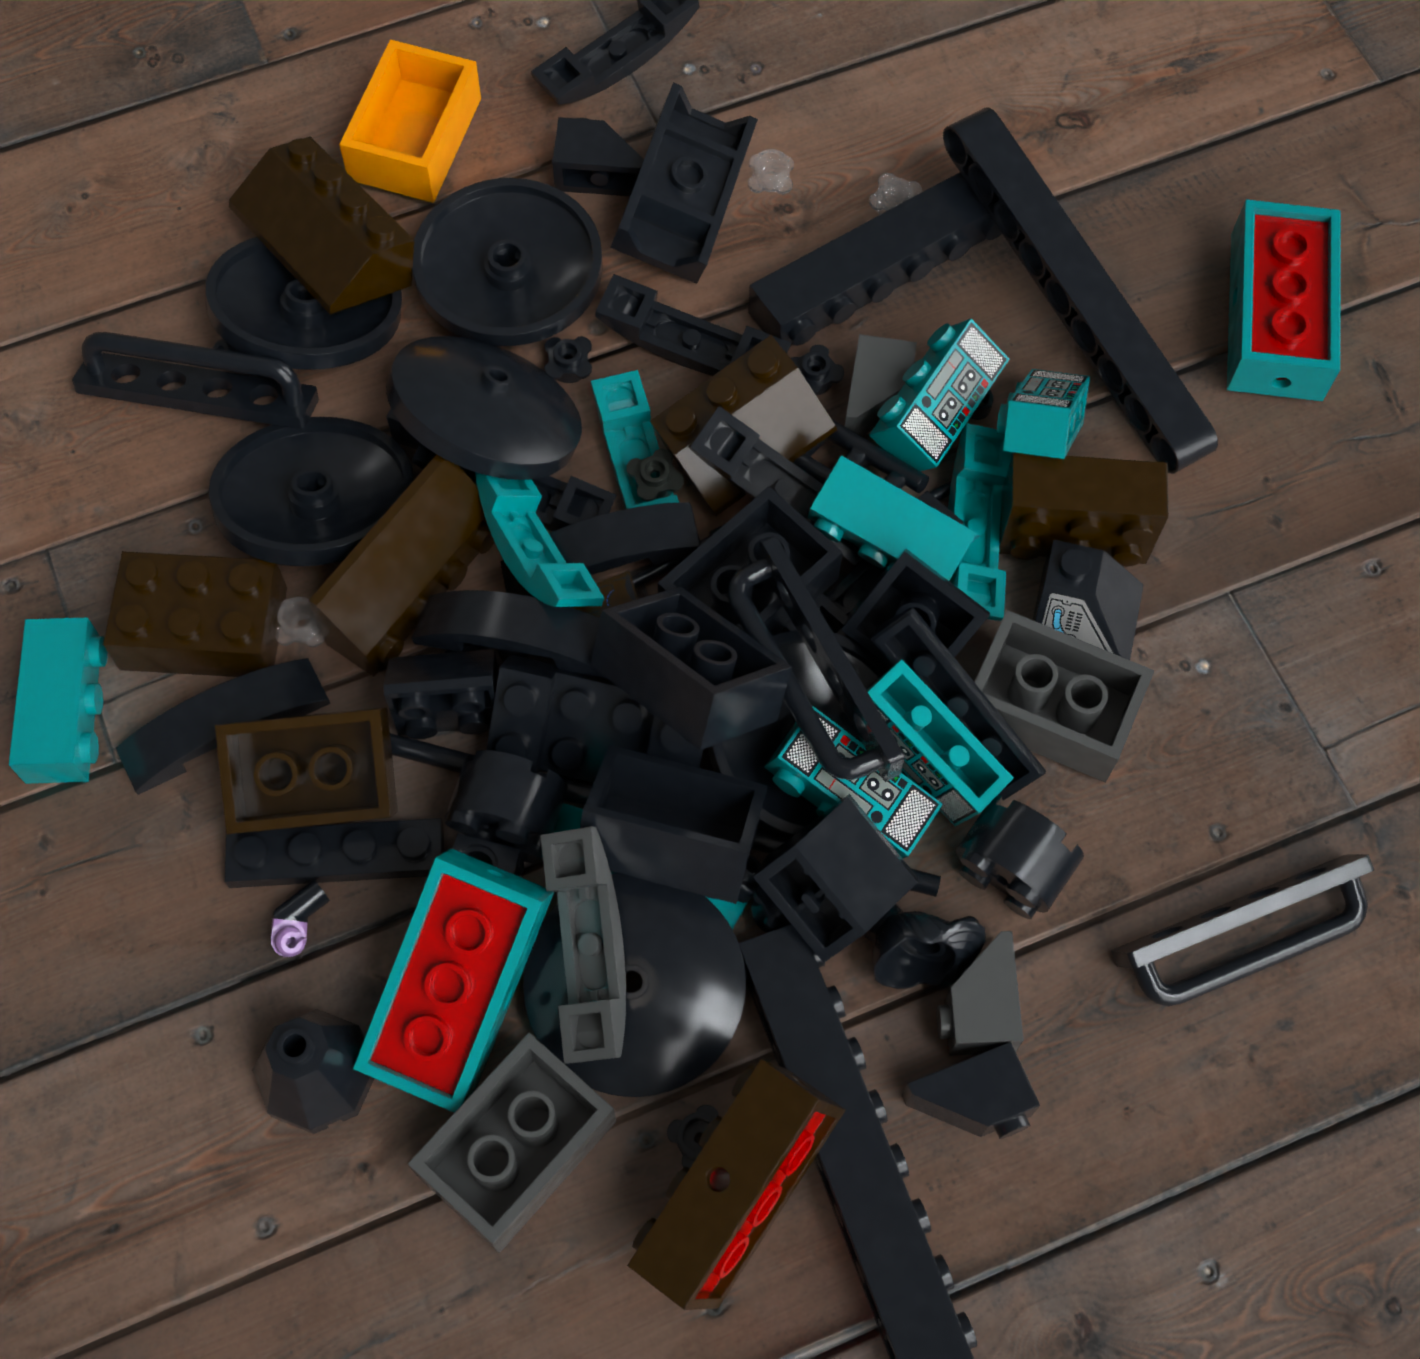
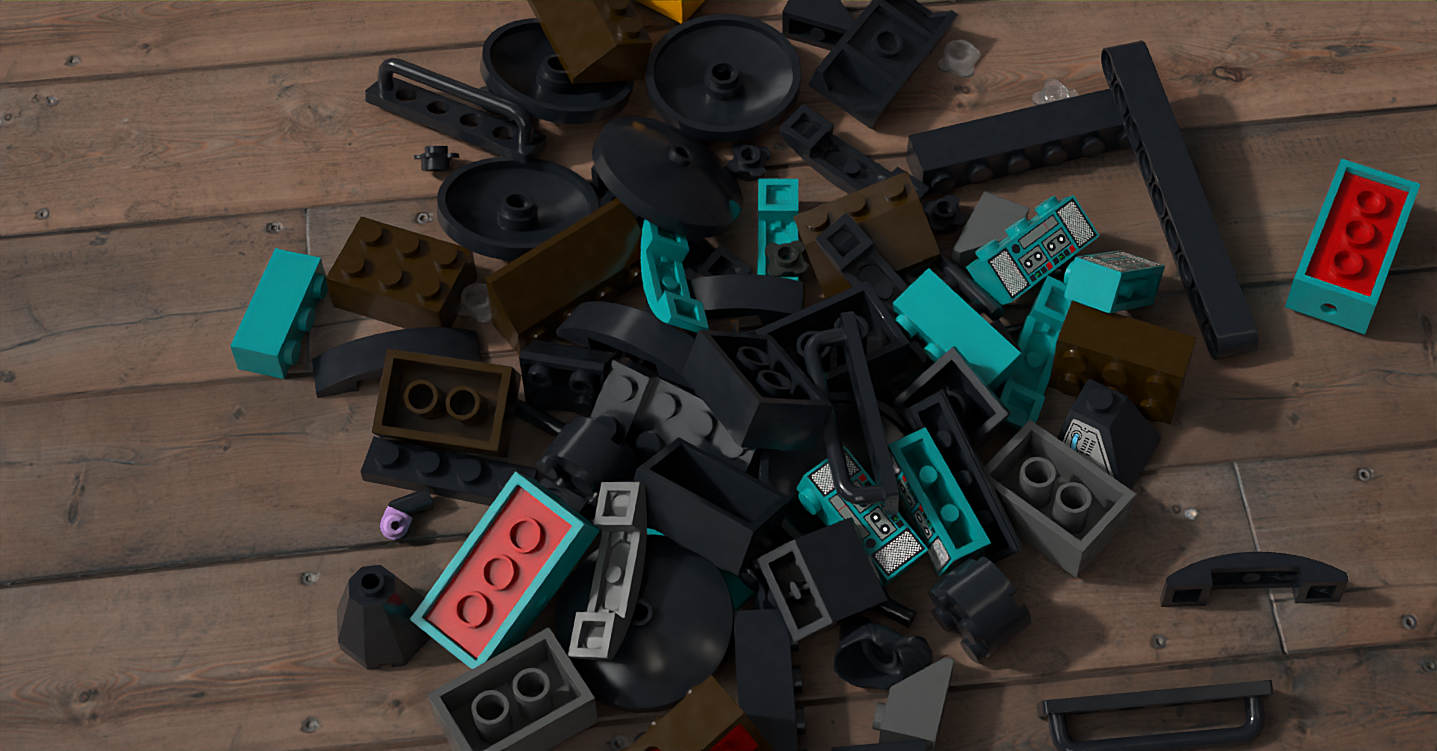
camera: 20 degrees right, 10 degrees down
(190, 448) = (436, 159): none -> black plate
(1356, 715) = (1308, 578): none -> black slope

